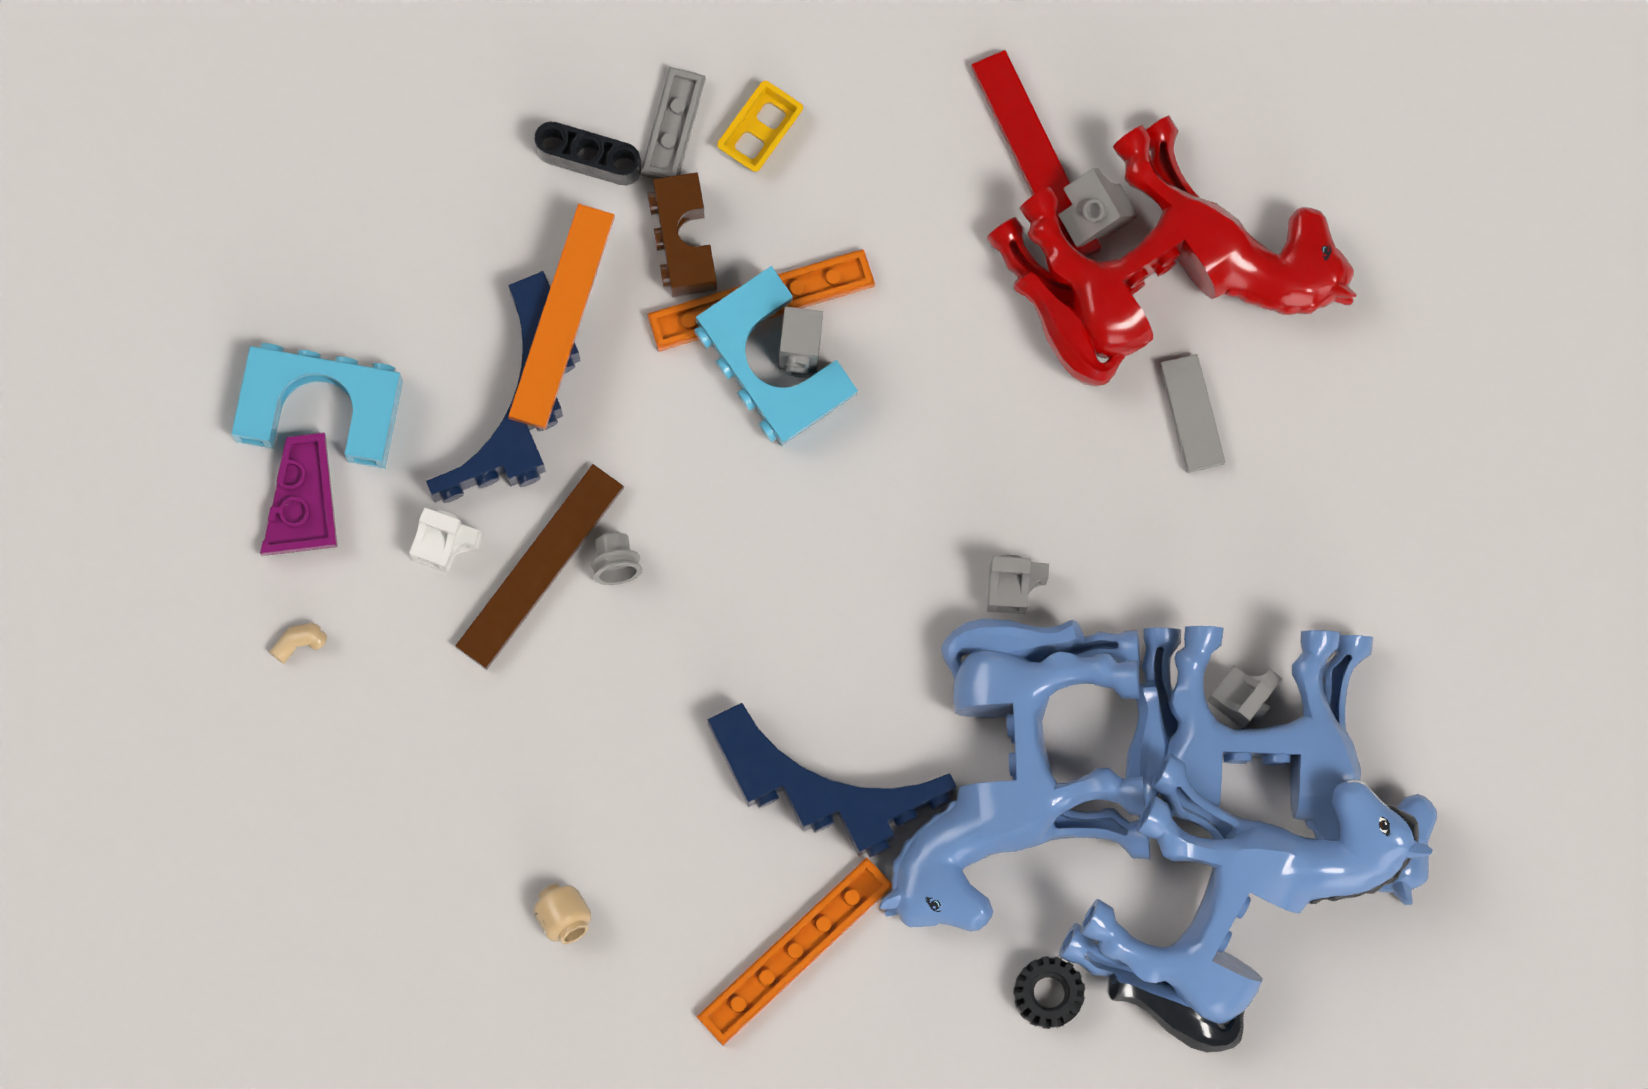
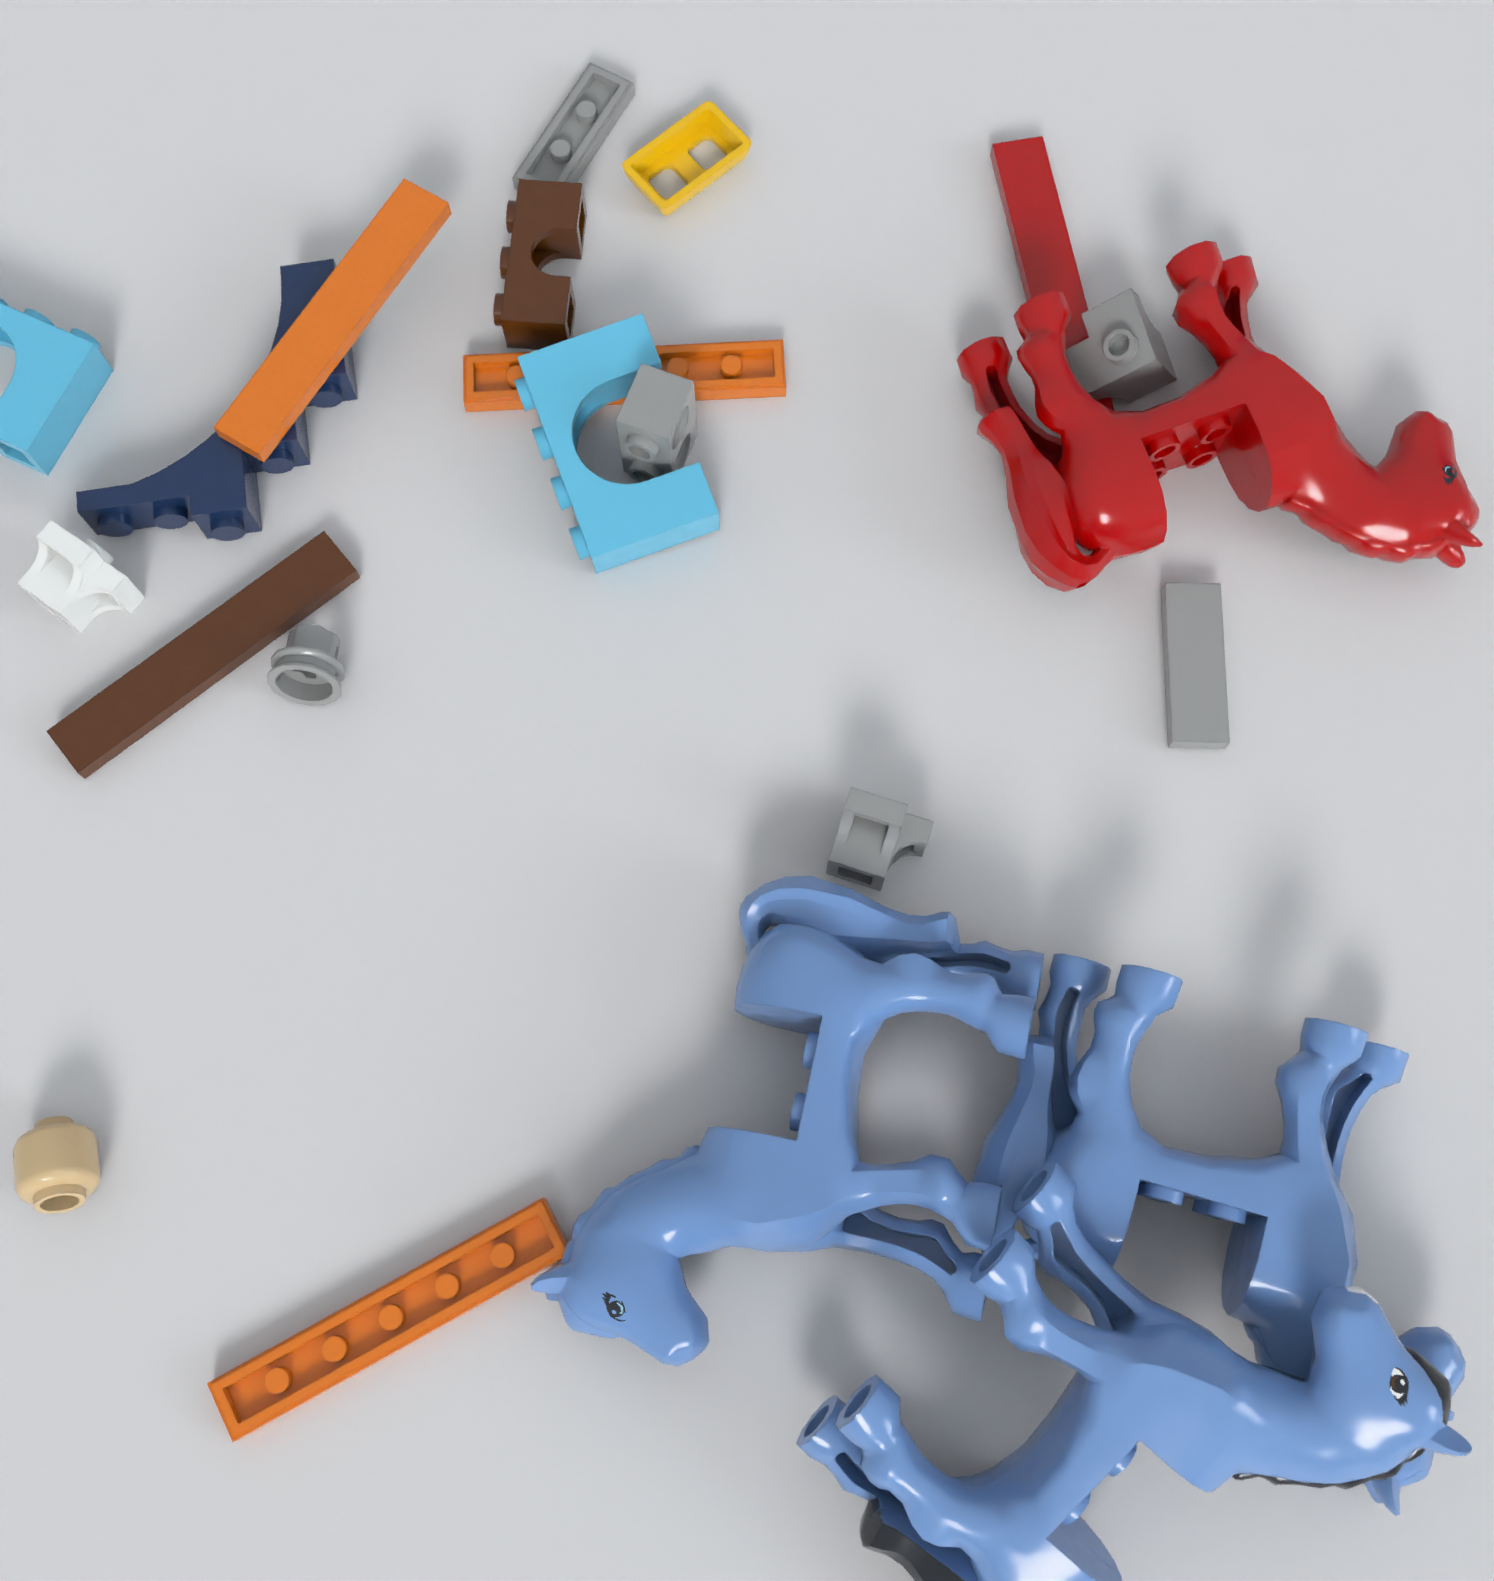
camera: 20 degrees right, 5 degrees down
(575, 140) = (447, 137): black beam -> none
(815, 800) = (557, 1128): dark blue arch -> none
(1049, 968) = (759, 1537): black tyre -> none
(1244, 696) = (1187, 1097): light grey brick -> none

